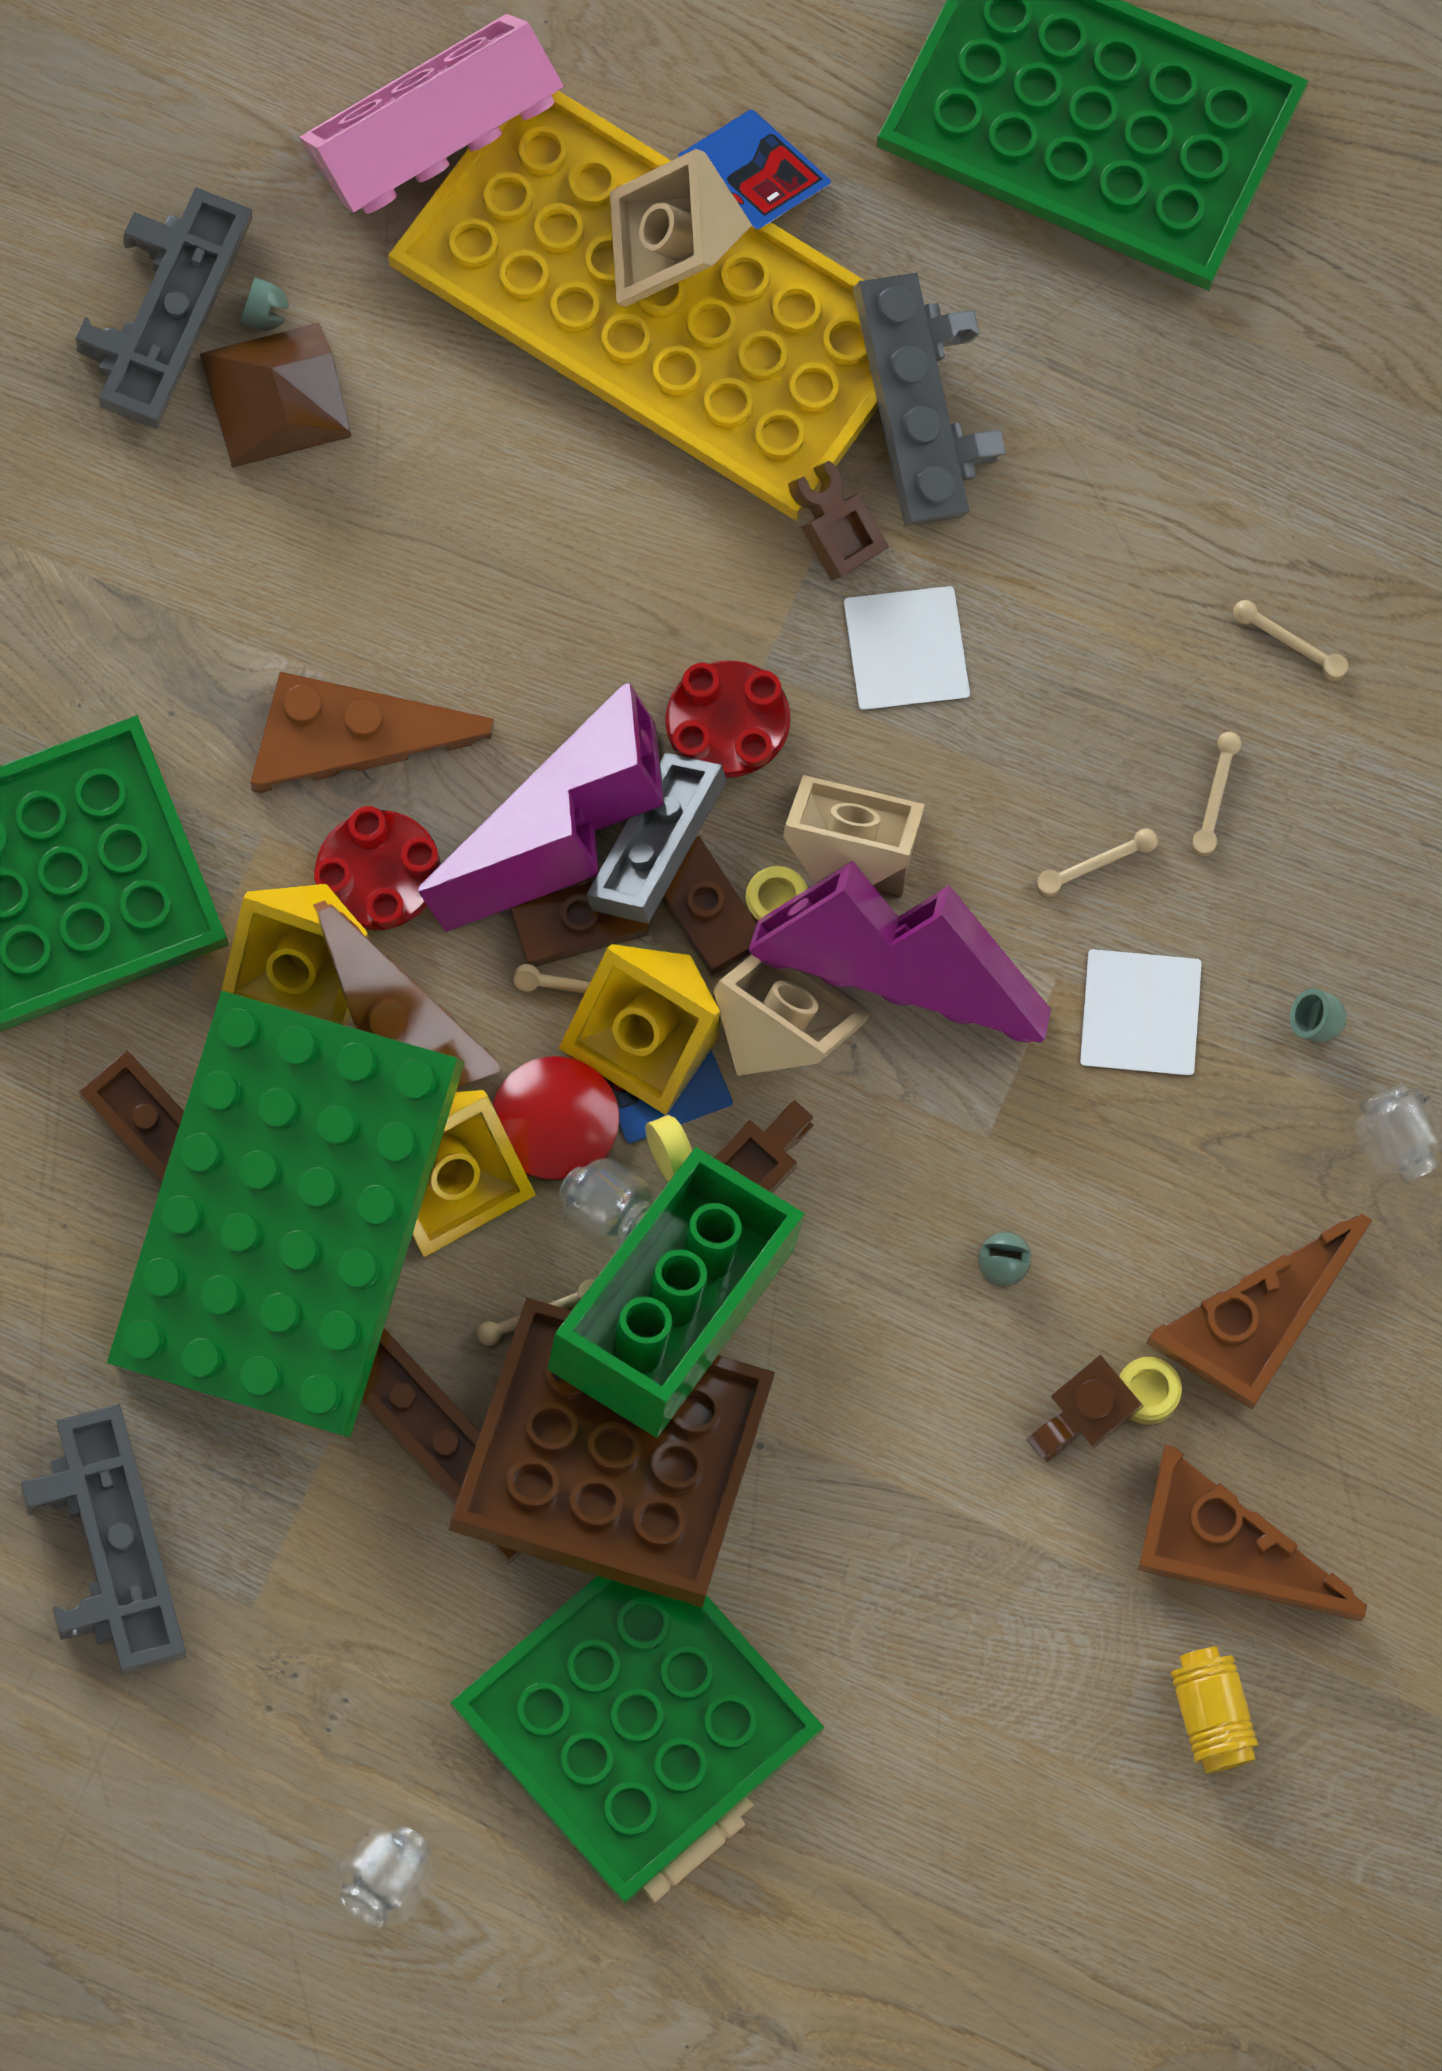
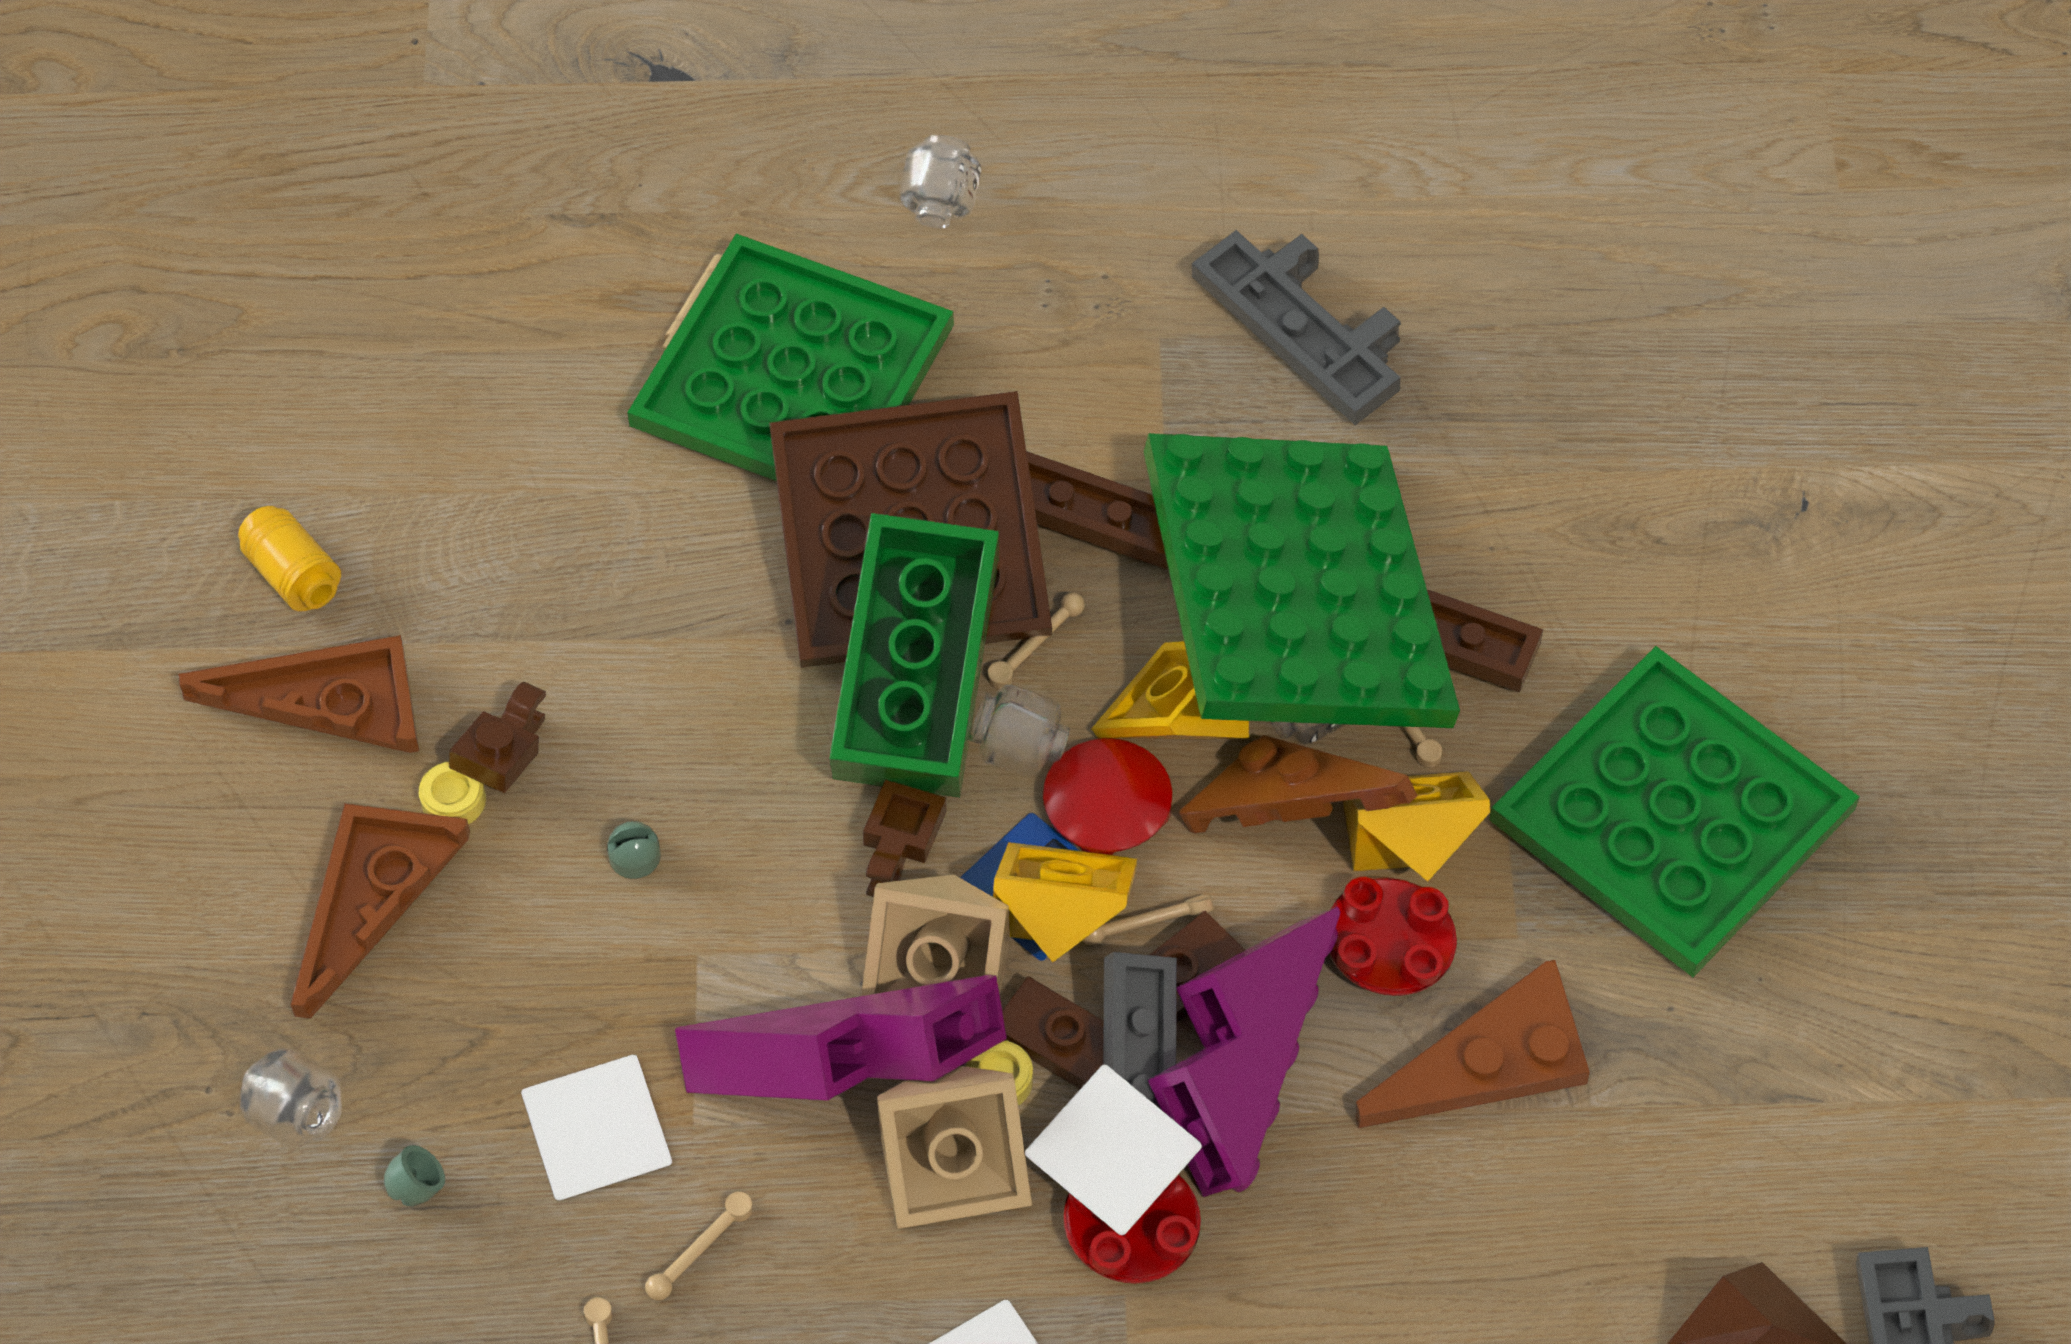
camera: 160 degrees right, 15 degrees down
(667, 1144) = (987, 803): light yellow tile -> none
(721, 760) = (1113, 1149): none -> white sticker

